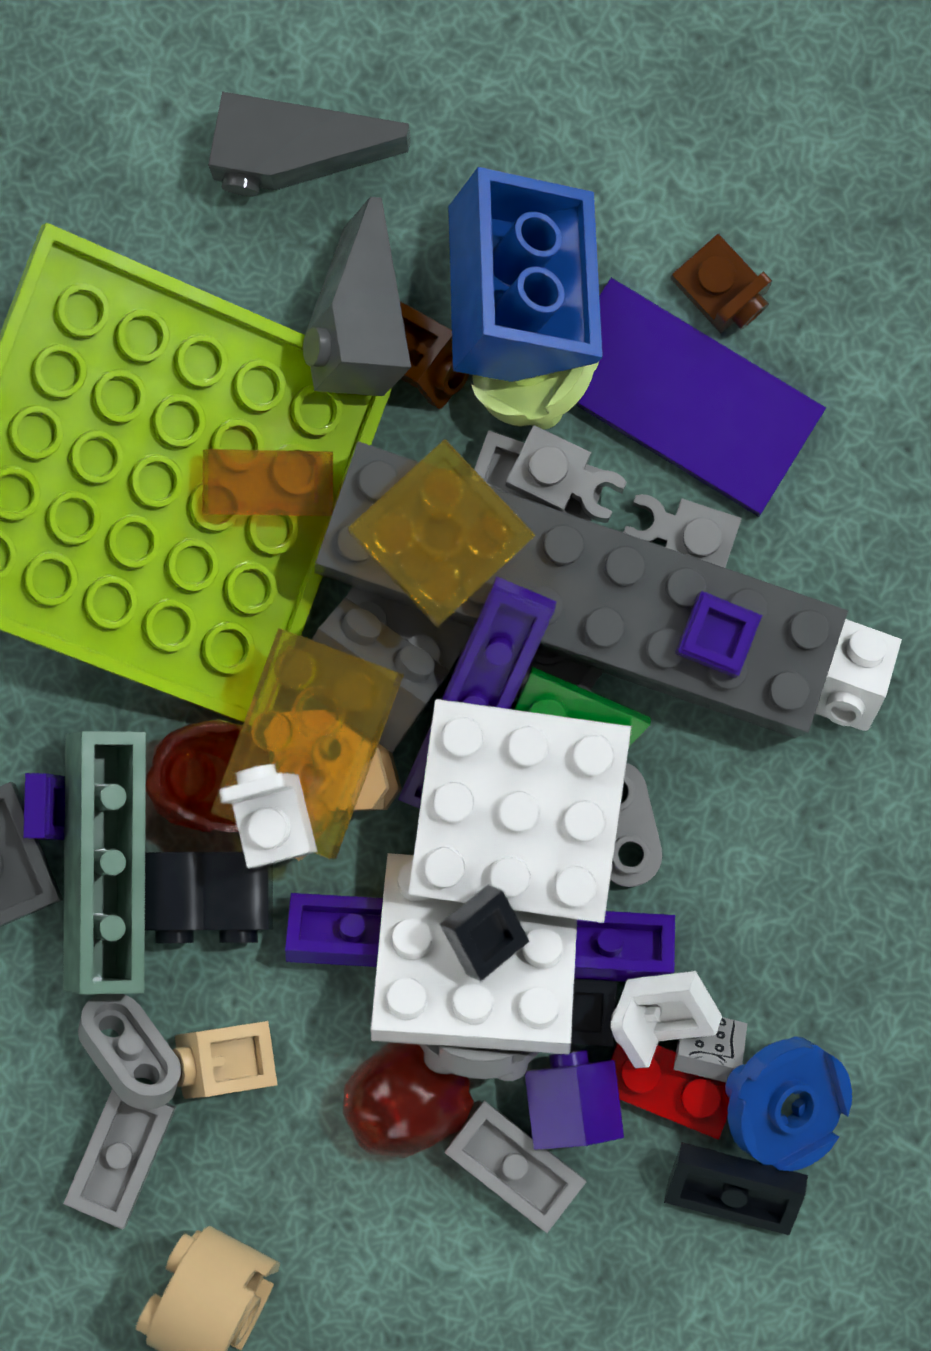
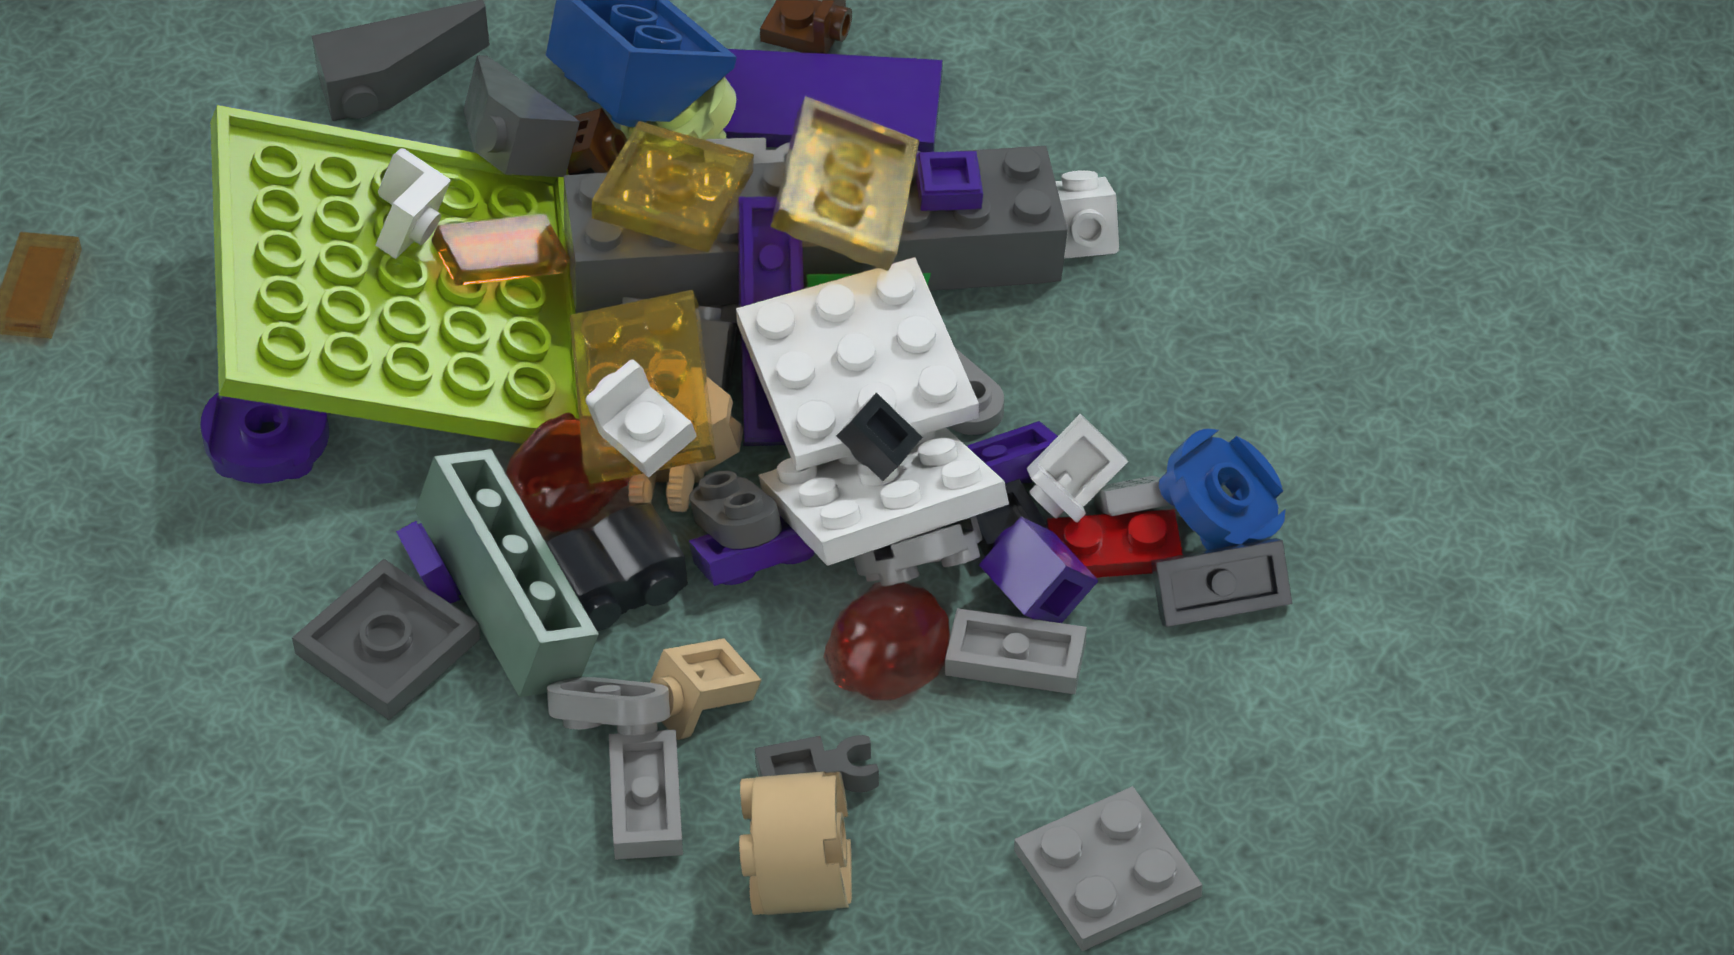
camera: 30 degrees left, 35 degrees down
(188, 436) = (415, 198): none -> white bracket
(261, 1204) = (809, 756): none -> dark grey plate
(344, 885) = (734, 511): none -> dark grey plate
(602, 621) = (845, 184): none -> clear yellow plate

